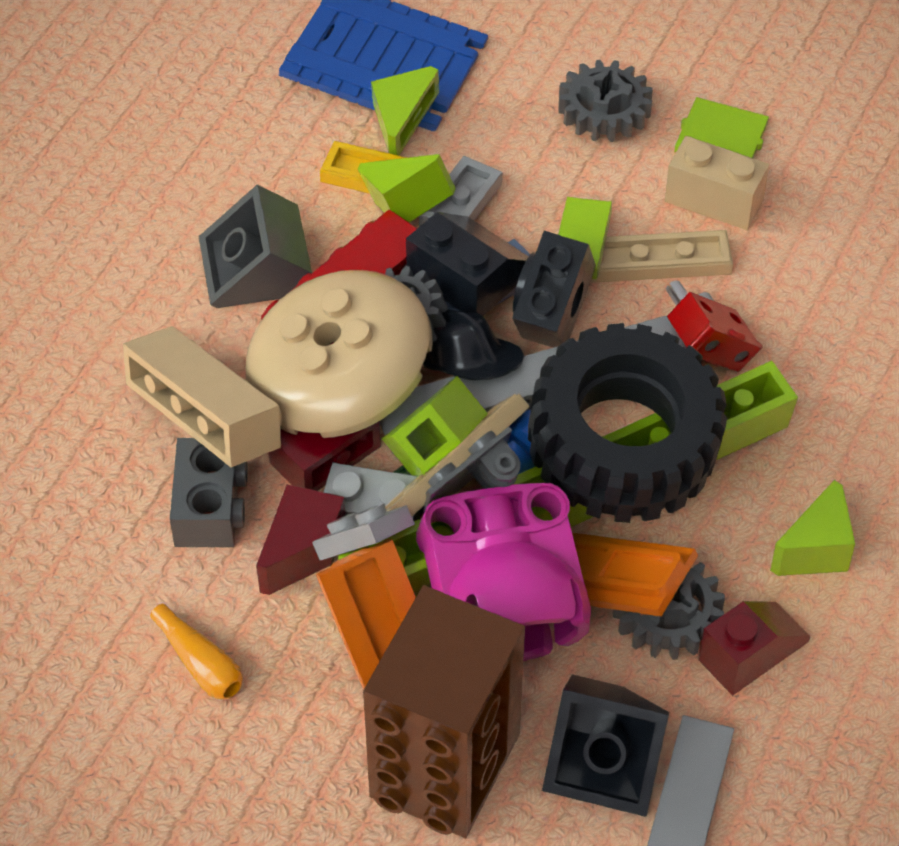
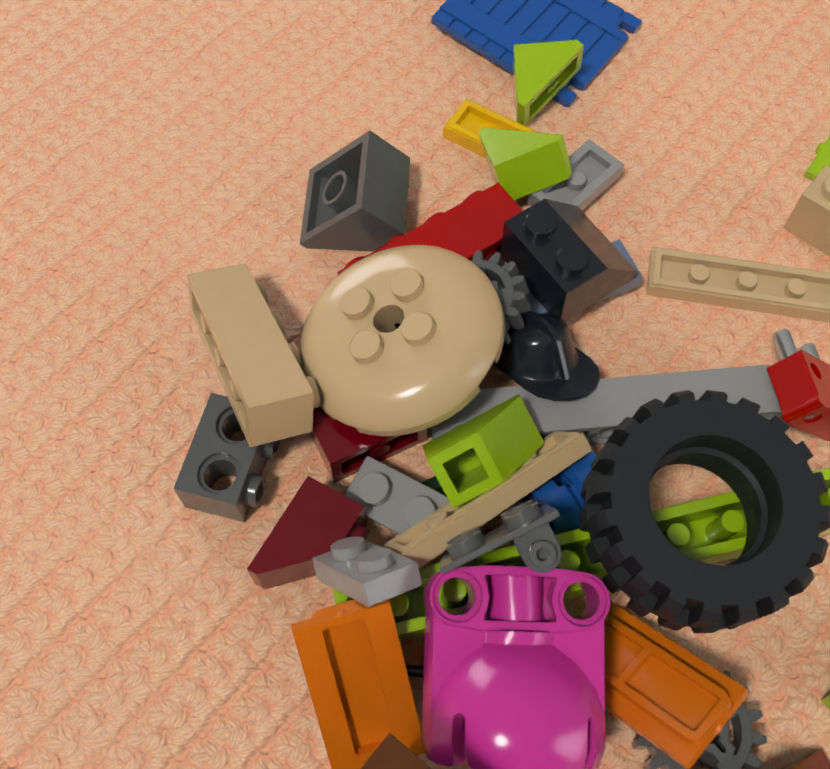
camera: 15 degrees right, 10 degrees up
(203, 659) = (167, 657): light orange piece -> none
(552, 289) = (647, 308): black brick -> none
(587, 222) = (690, 253): lime tile -> none
(605, 100) = (745, 109): dark grey gear -> none

